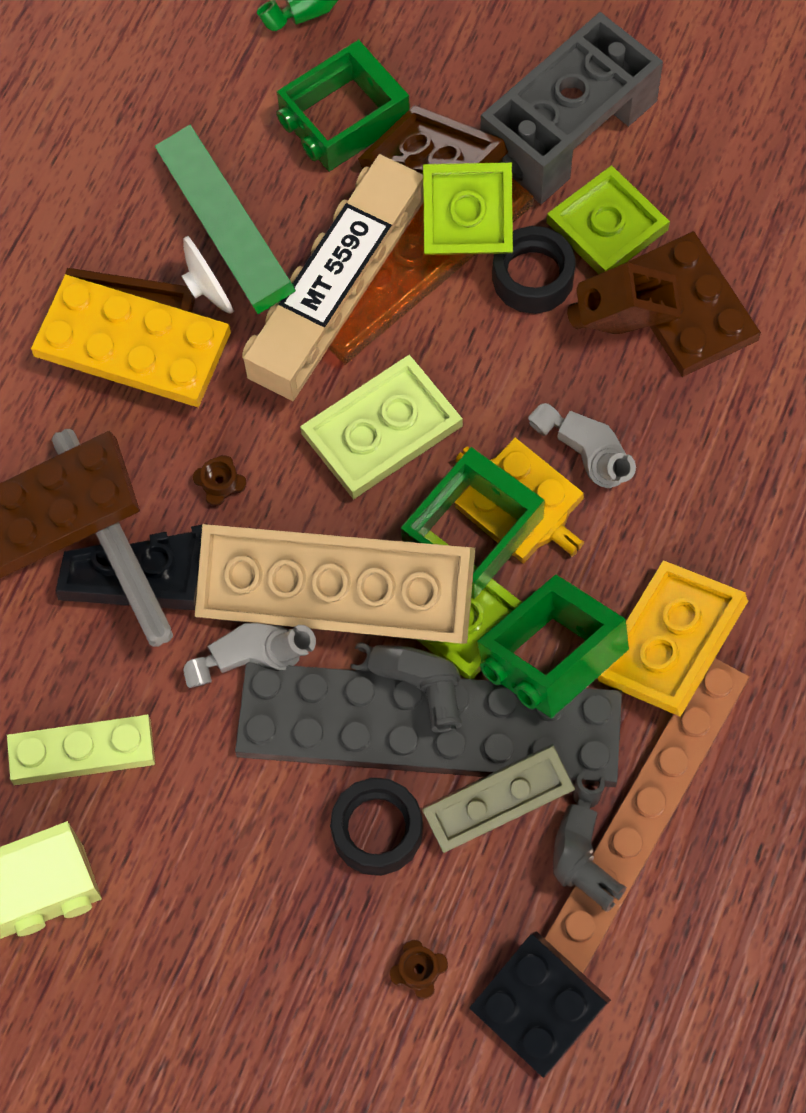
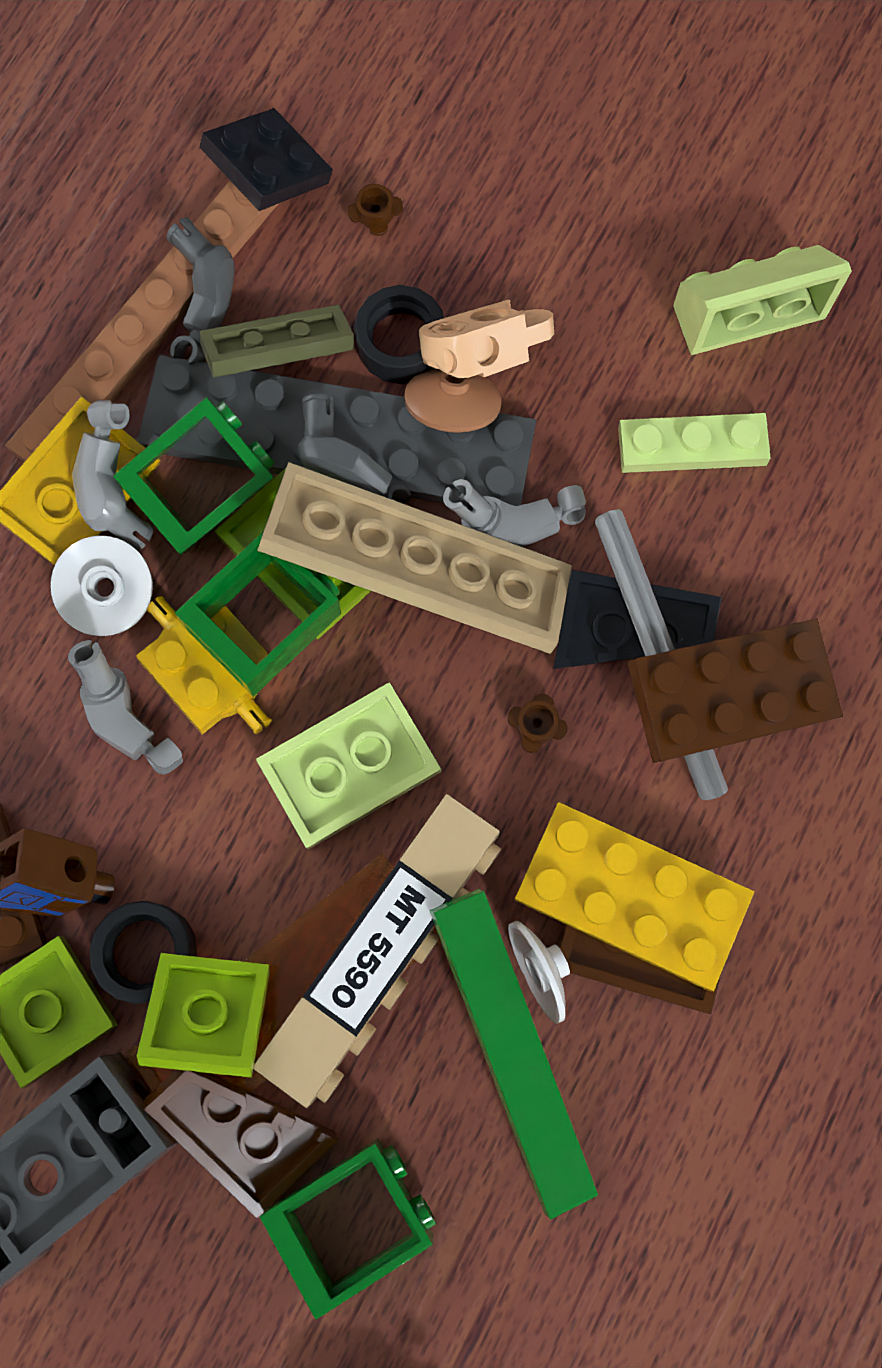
camera: 175 degrees left, 10 degrees up
(259, 834) = (484, 339): none -> light nougat piece
(322, 737) = (452, 402): none -> nougat dish
(626, 535) = (76, 583): none -> white dish
(645, 630) = (95, 488): none -> light grey arm

